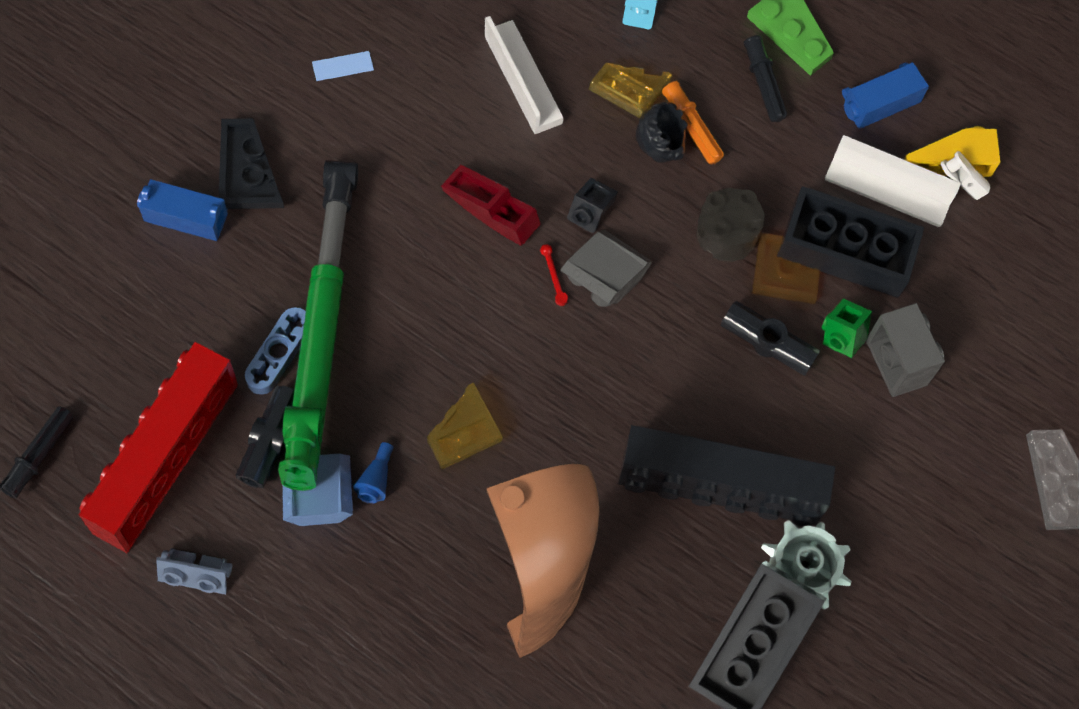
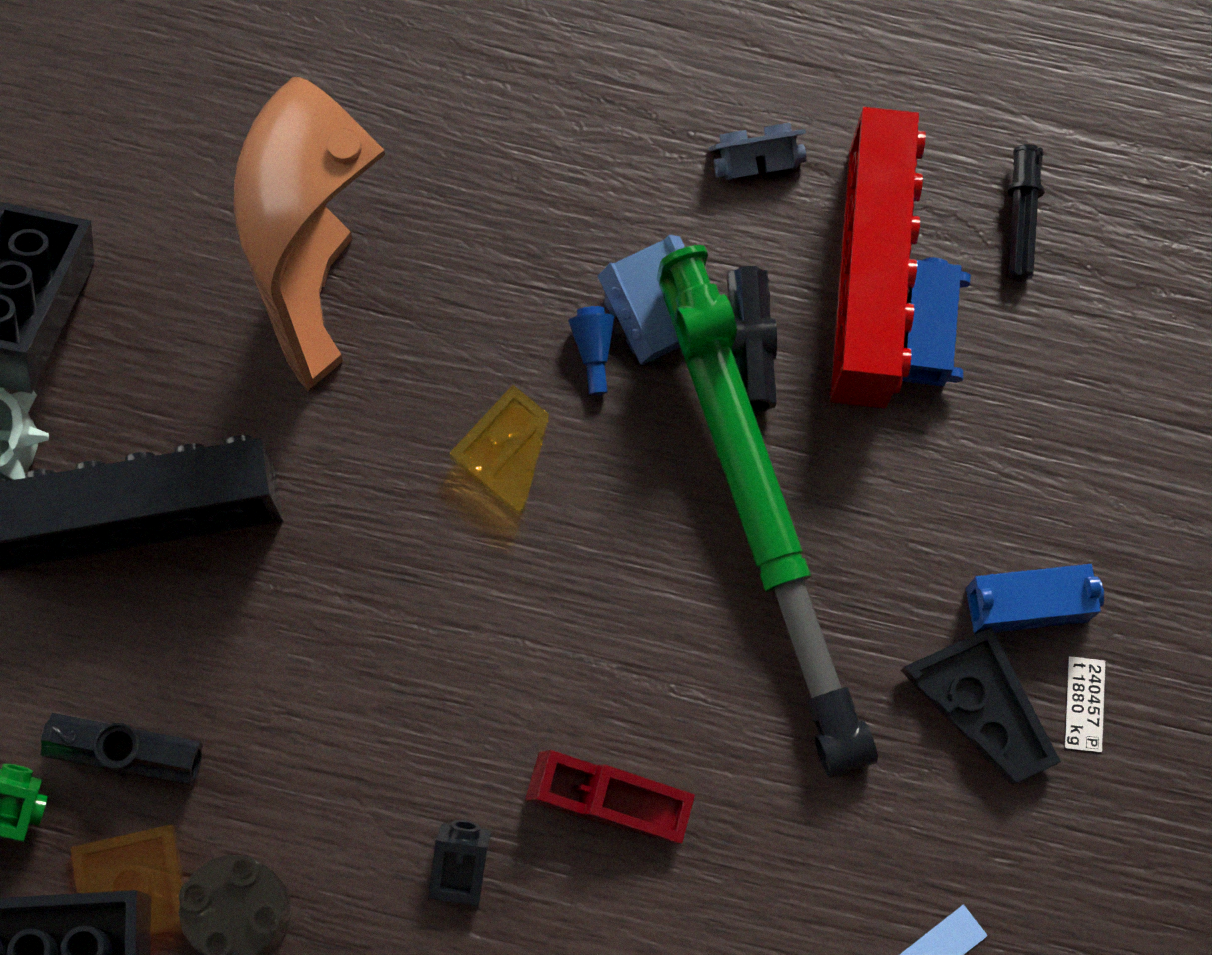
camera: 160 degrees right, 5 degrees up
(140, 394) = (935, 322): none -> blue brick
(185, 151) = (1085, 704): none -> white sticker
(258, 366) = (816, 429): medium blue beam -> none
(561, 297) = (451, 699): red hinge -> none
(606, 268) = (400, 767): dark grey slope -> none

